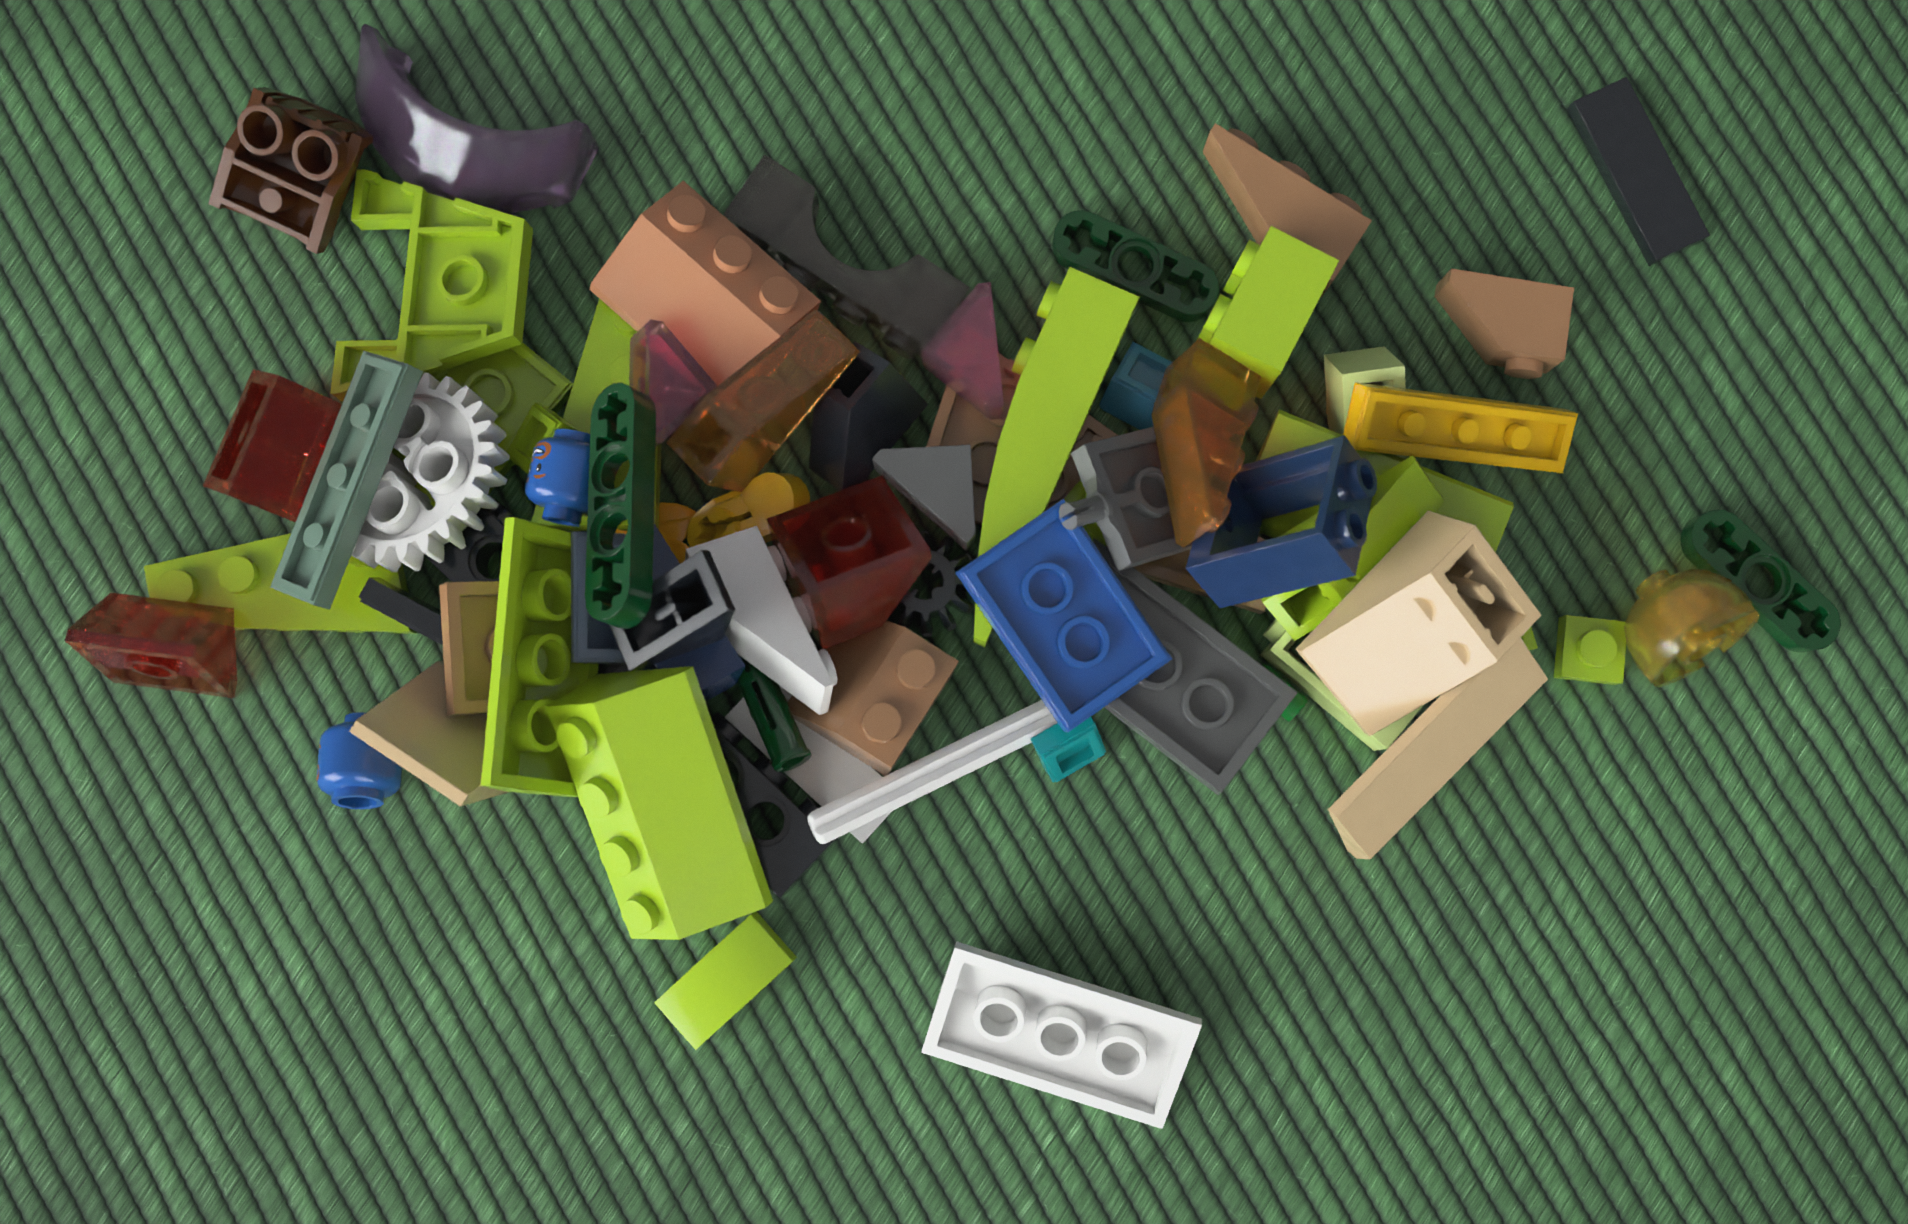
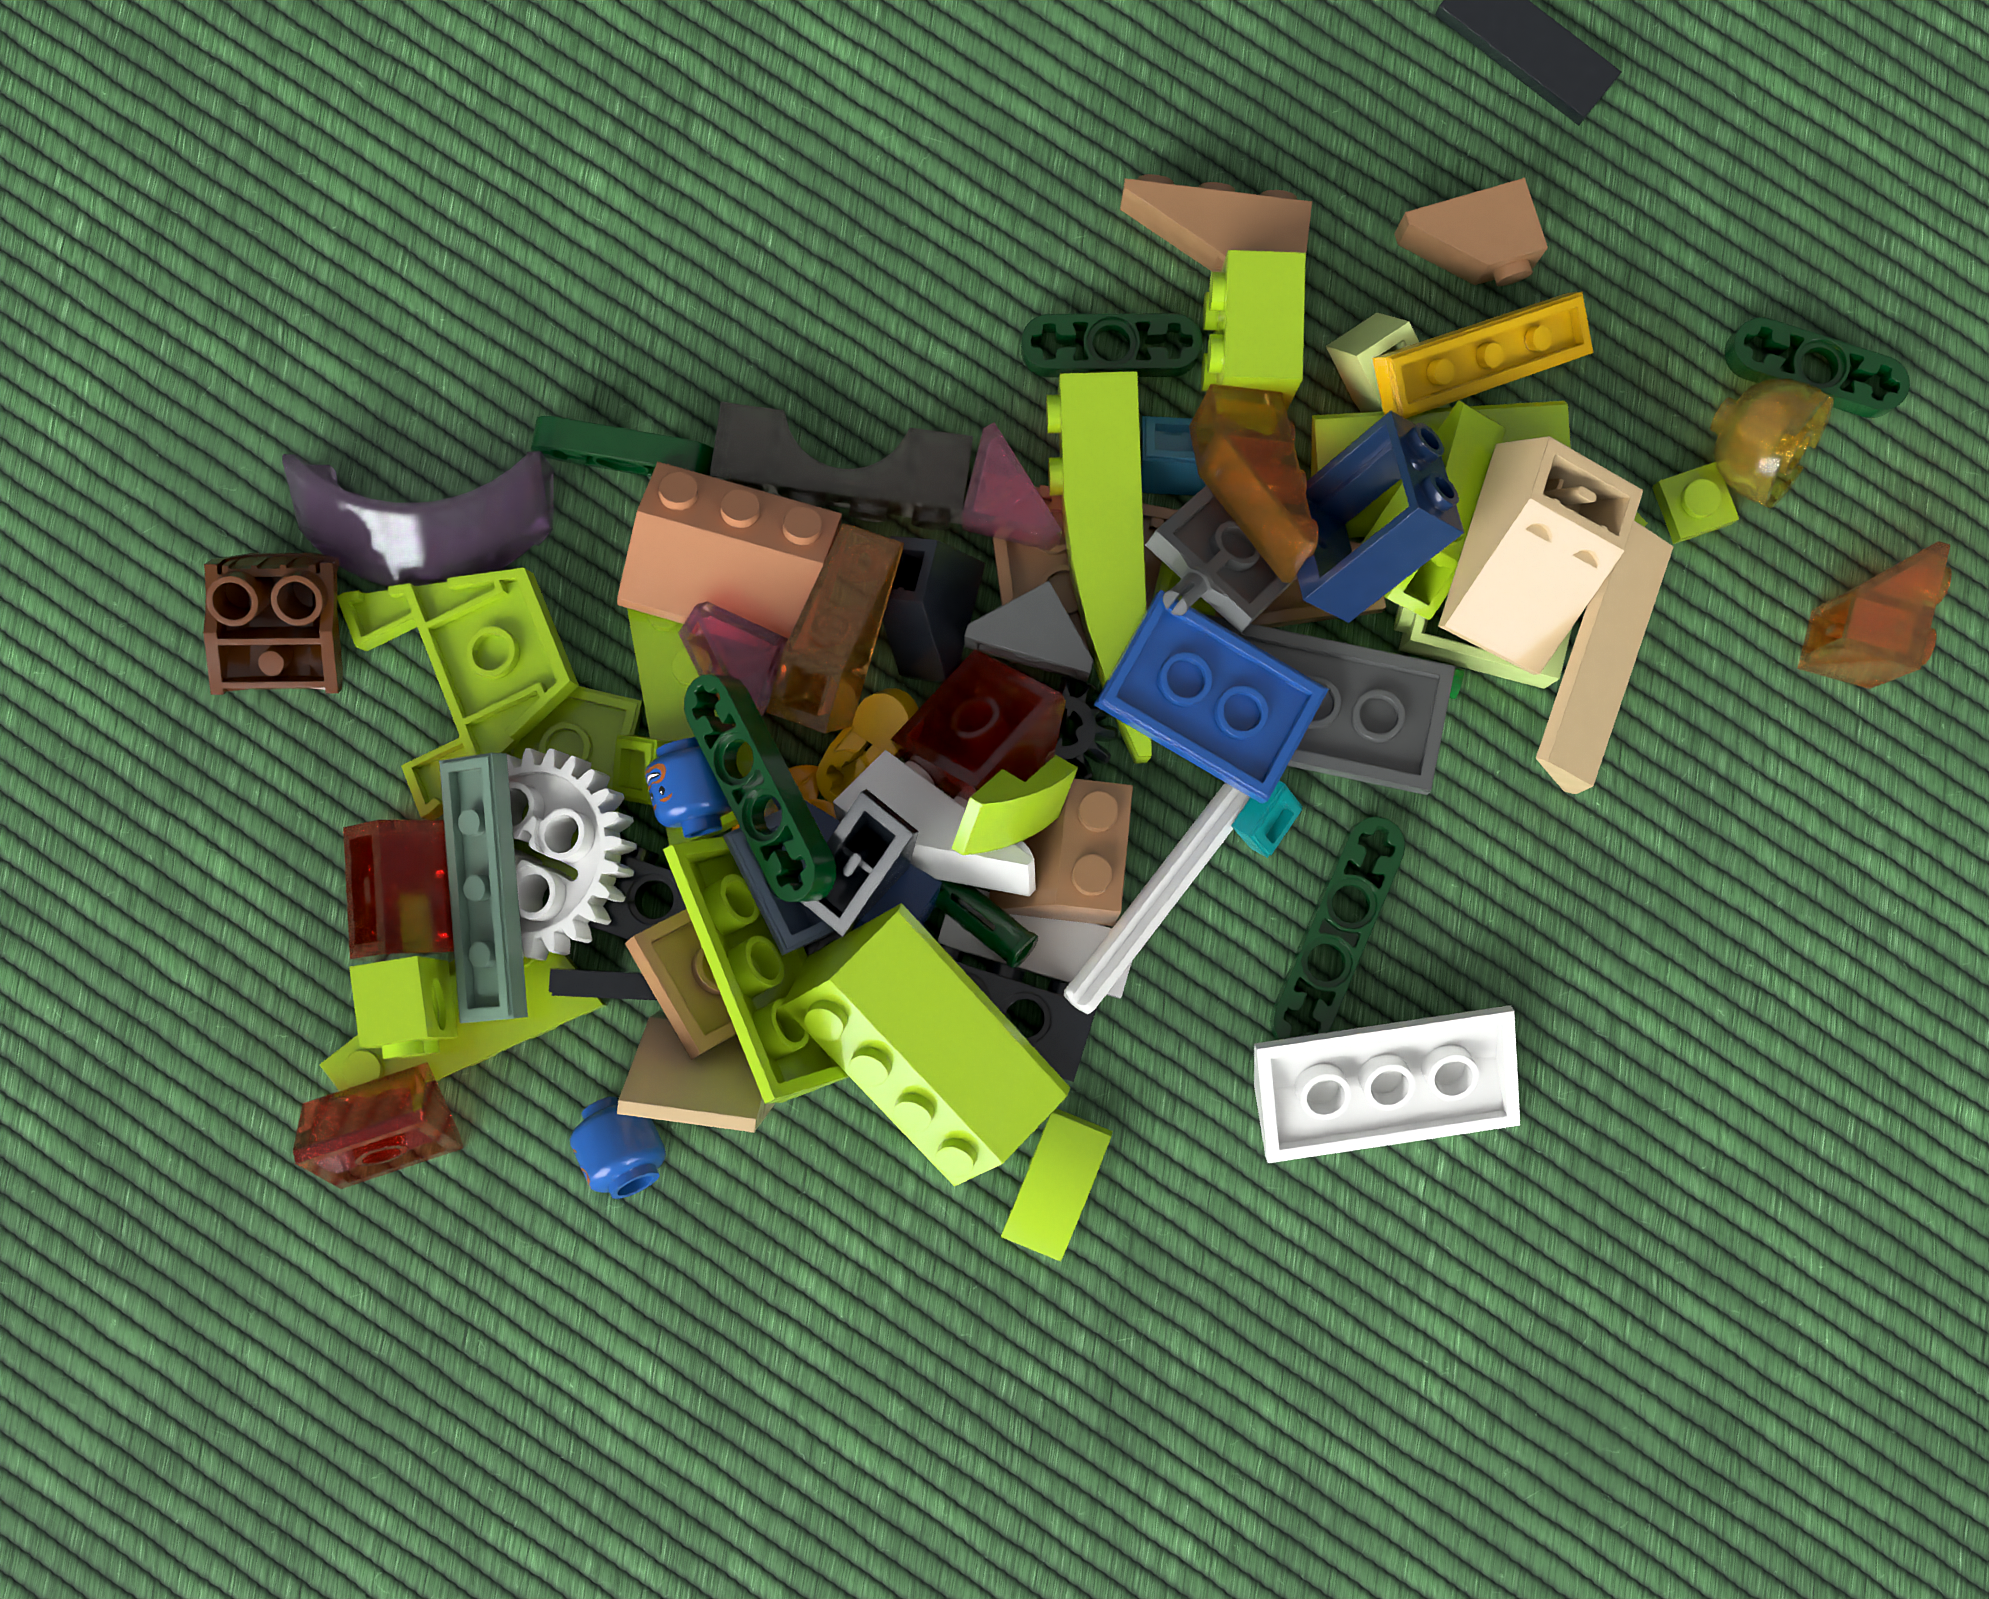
camera: 30 degrees left, 0 degrees up
(225, 548) = (403, 1005): none -> lime brick
(657, 152) = (617, 447): none -> dark green beam
(832, 632) = (1012, 809): none -> lime slope
(1076, 872) = (1330, 930): none -> dark green beam
(1705, 837) = (1881, 623): none -> clear orange slope

